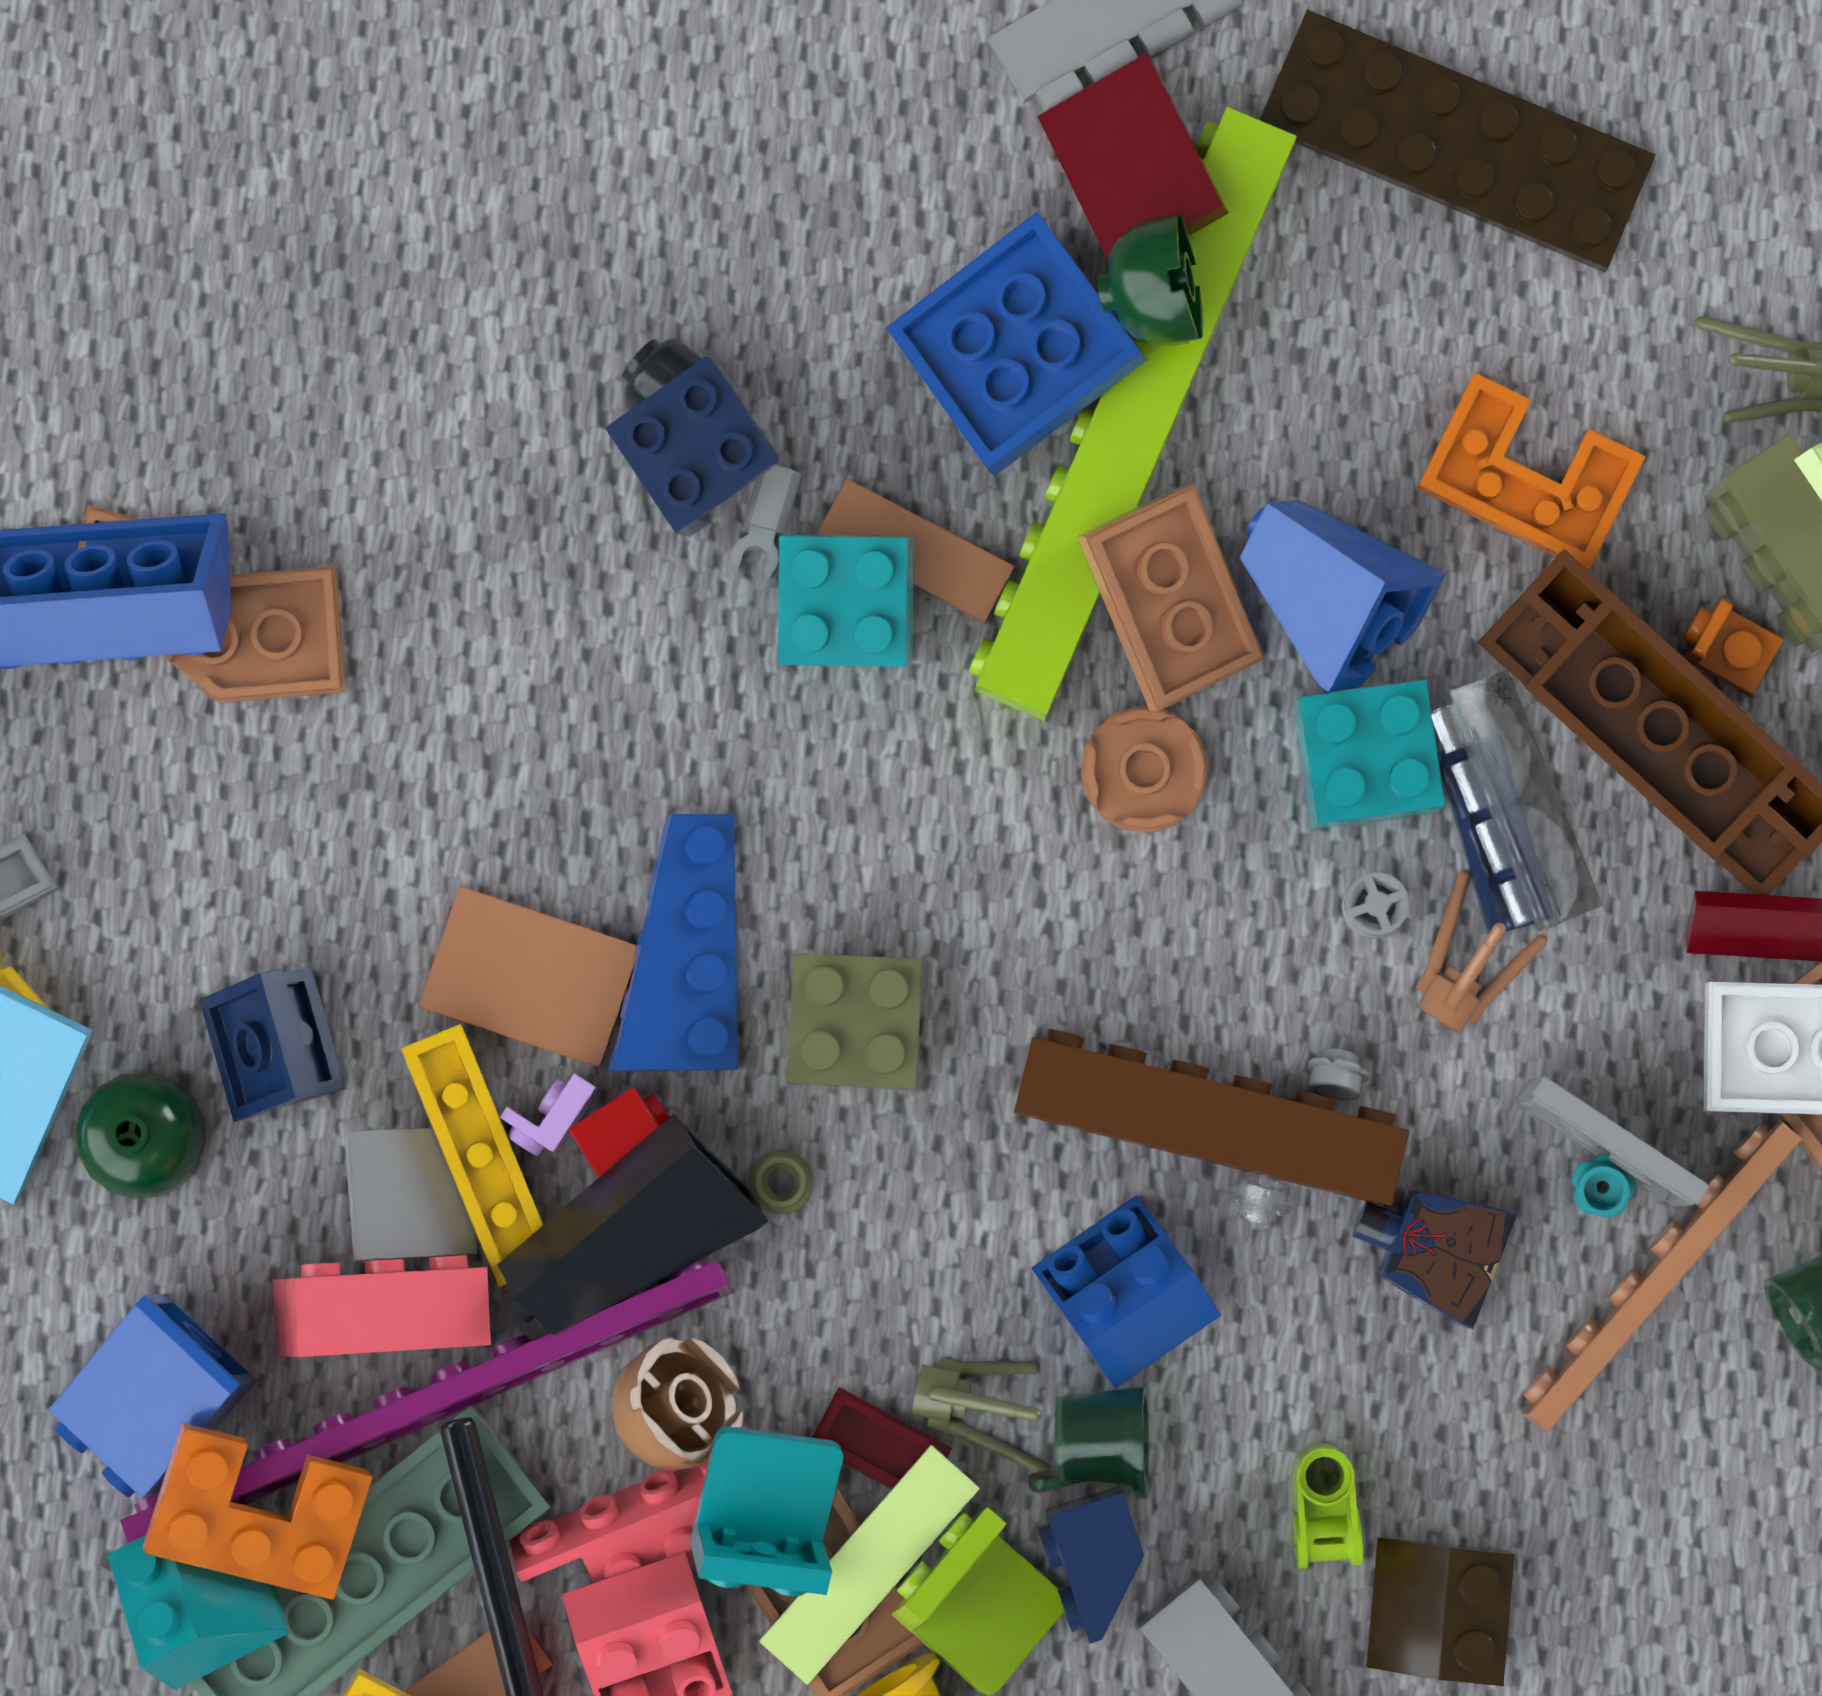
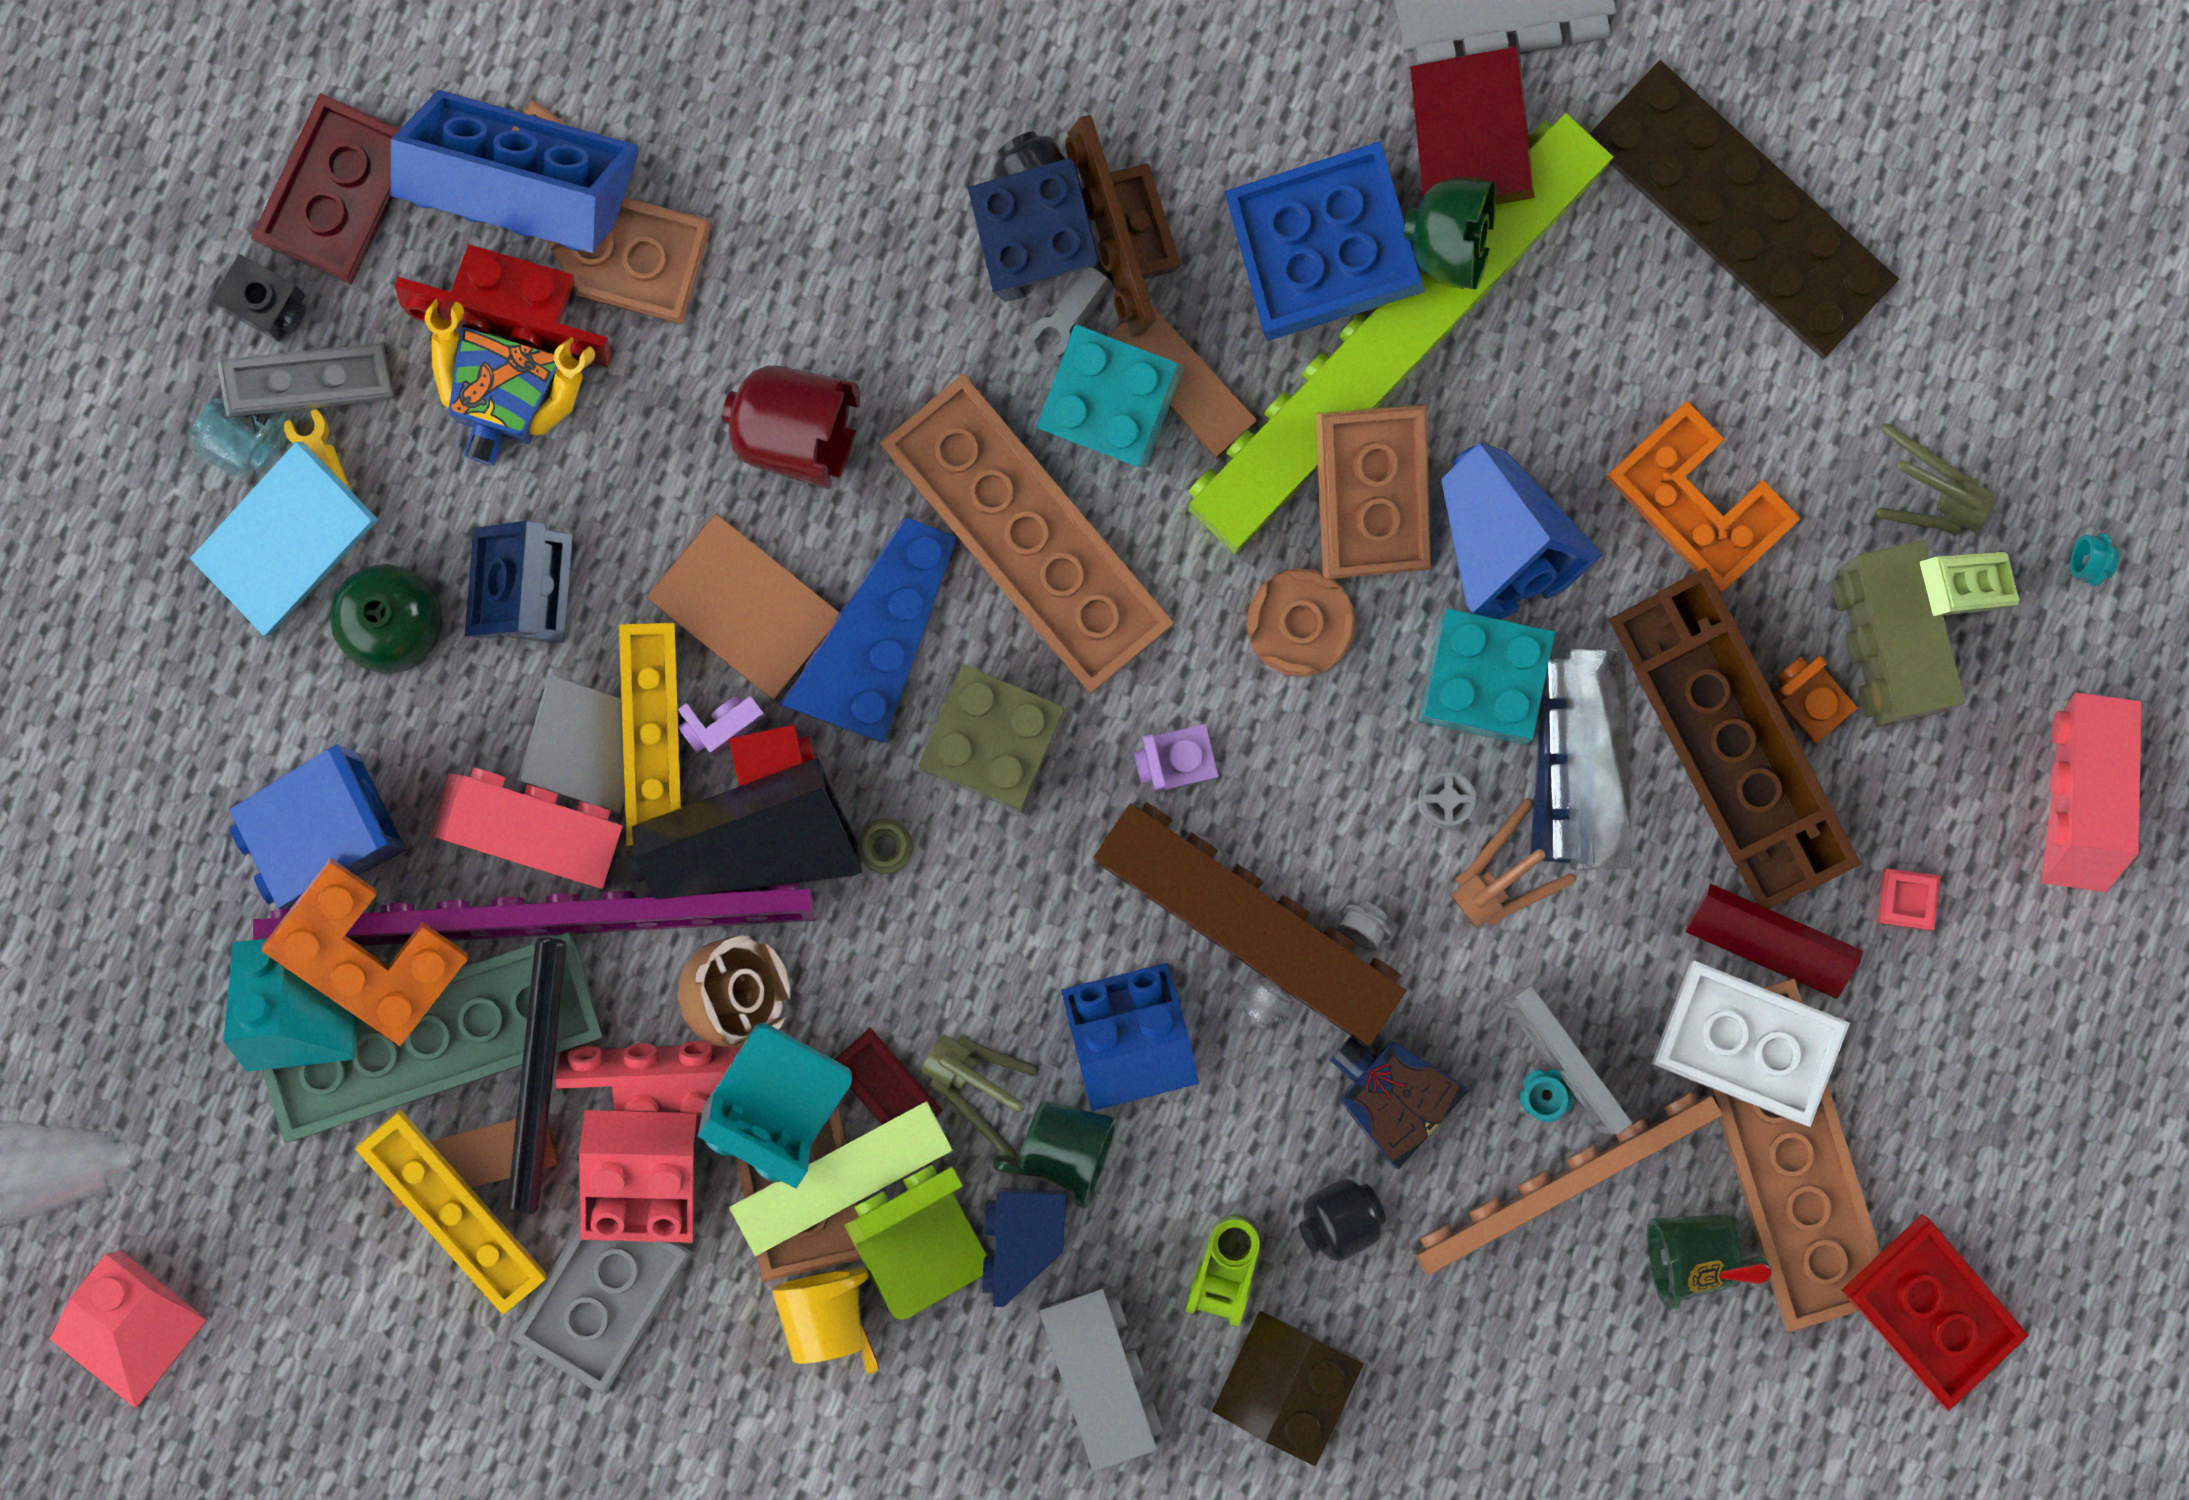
camera: 15 degrees right, 0 degrees up
(146, 735) = (507, 300): none -> red bracket
(172, 831) = (501, 384): none -> torso
(508, 757) = (792, 423): none -> dark red cylinder
(796, 402) = (1130, 224): none -> reddish brown bracket
(809, 783) = (1026, 534): none -> nougat plate
(1063, 969) = (1176, 759): none -> lavender bracket
(1431, 1405) = (1342, 1219): none -> black head

